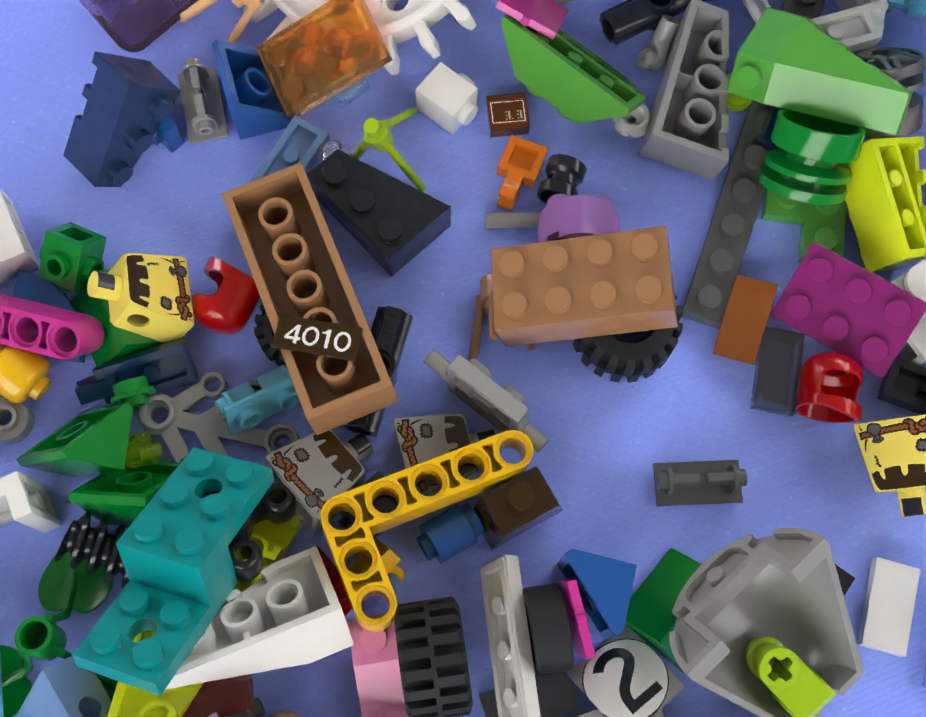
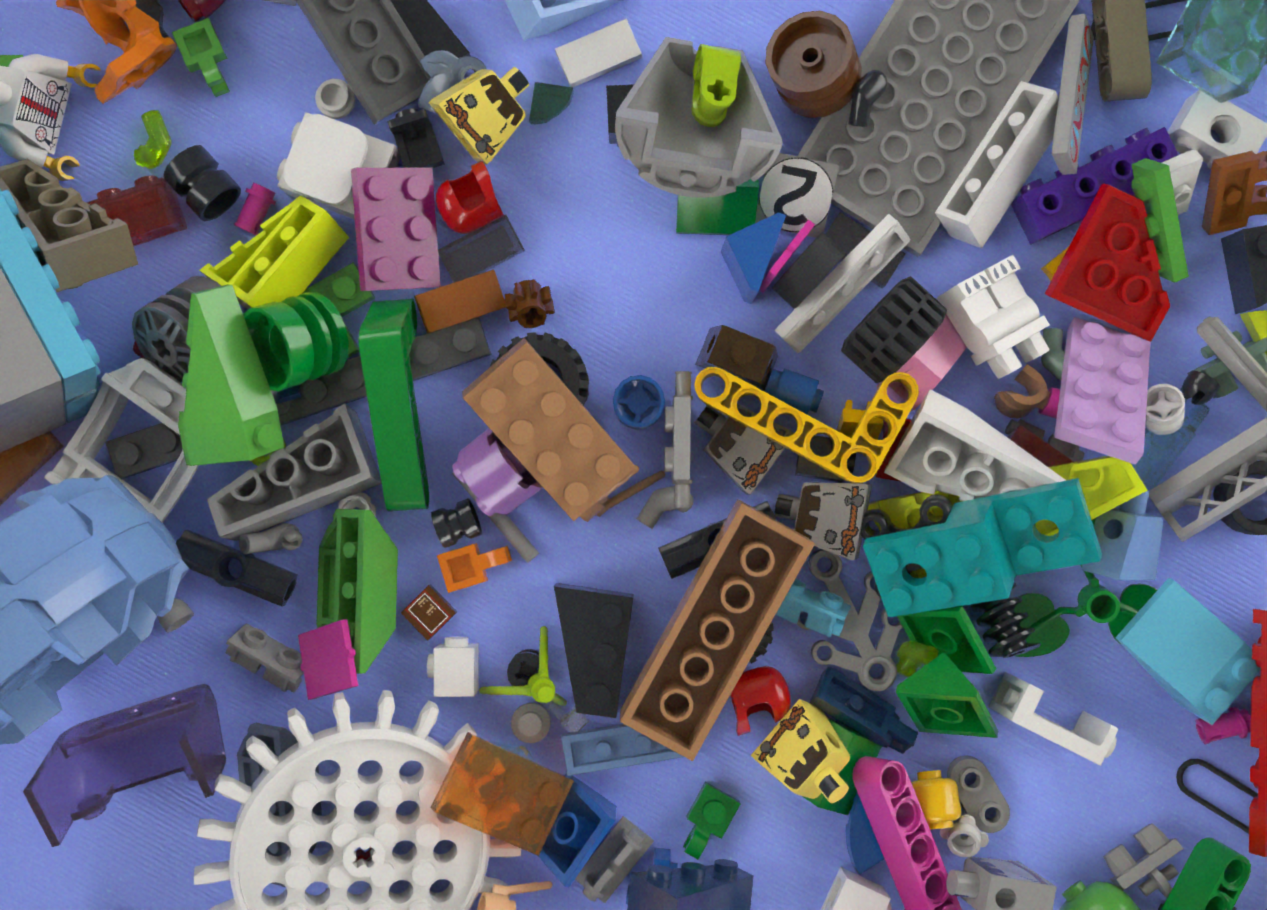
camera: 125 degrees left, 15 degrees up
(71, 256) = (819, 840): green brick -> none
(133, 391) = (882, 699): green plate -> none
(170, 198) = (711, 814): none -> green plate
(318, 337) = (749, 588): dark brown sticker -> none
(352, 121) = (530, 722): none -> light grey plate
(409, 148) = (528, 668): none -> black wheel
(446, 345) = (659, 501): none -> light grey arm
(548, 391) = (638, 402): none -> blue wheel
(698, 482) = (613, 246): dark grey hinge -> none
(701, 370) = (529, 303): none -> reddish brown gear
(710, 194) = (389, 385): none -> green beam
(872, 527) = (549, 102): none -> clear green tile

